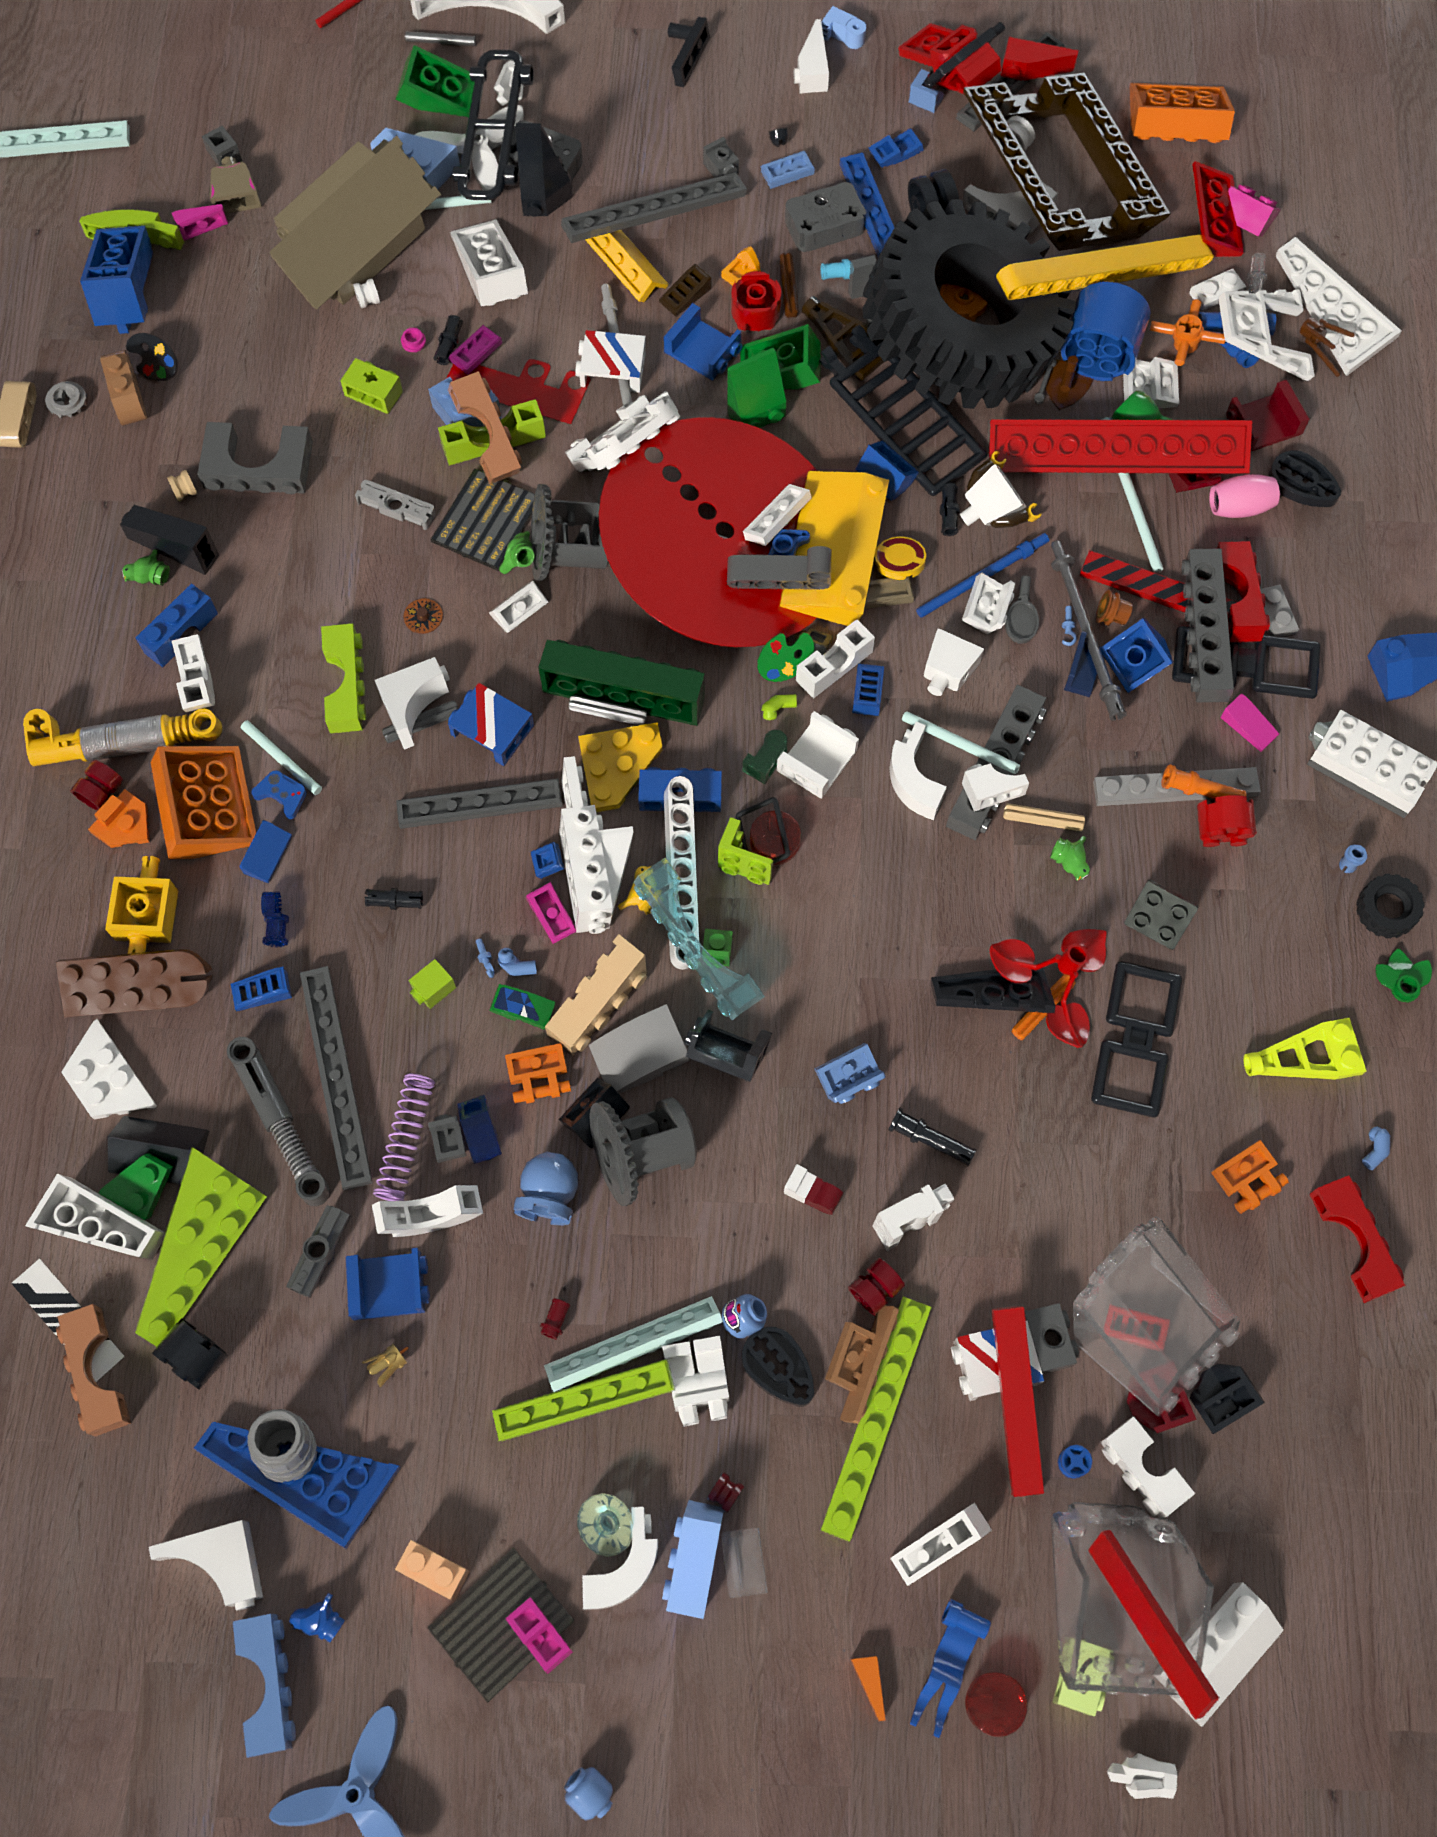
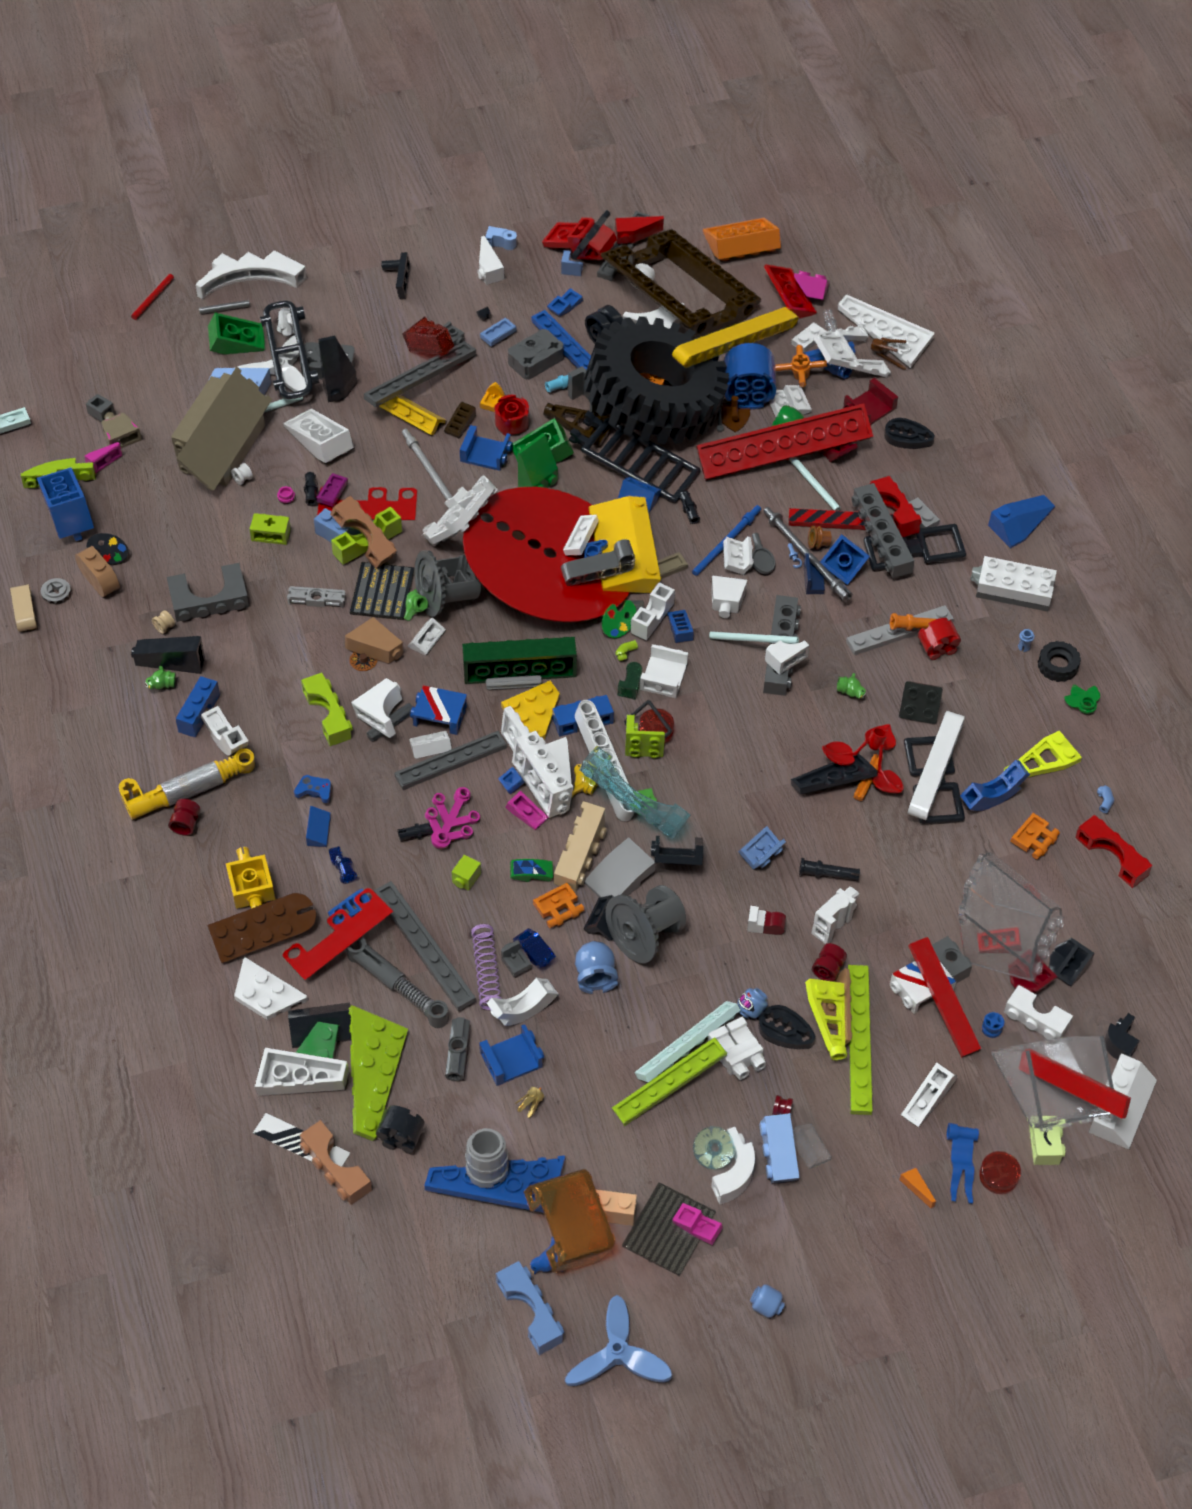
camera: 20 degrees left, 15 degrees down
(121, 821) = (209, 836): orange plate -> none
(202, 800) = (260, 807): orange slope -> none
(225, 1555) = (467, 1241): white arch -> none
(232, 1032) = (343, 936): none -> red piece
(281, 757) = (302, 768): light aqua bar -> none
(359, 1580) = (574, 1219): none -> clear orange windscreen
(440, 896) = (450, 819): none -> dark pink plant
(443, 595) = (374, 641): none -> medium nougat slope
(461, 771) = (430, 744): none -> white slope
(485, 957) = (494, 849): medium blue hand -> none
(513, 965) = (514, 848): medium blue arm -> none
(552, 1326) = (630, 1043): dark red pin -> none
(612, 357) = (428, 470): panel -> none
(684, 155) = (428, 338): none -> clear red wedge
(789, 285) = (524, 393): reddish brown axle -> none
(851, 1336) = (832, 993): none -> neon yellow plate
(900, 557) = (670, 543): yellow tile -> none
(909, 784) = (730, 672): white arch -> none
(995, 498) = (717, 491): white torso -> none
(1044, 817) = (824, 669): tan axle -> none
(1145, 1023) = (936, 765): none -> white beam
(1145, 1777) = (1107, 1182): white rock -> none
(1218, 1088) = (995, 792): none -> blue arch
(1244, 496) = (875, 451): bright pink piece -> none
(1247, 1551) = (1118, 1039): none -> black brick
(1249, 722) = (930, 581): dark pink slope -> none

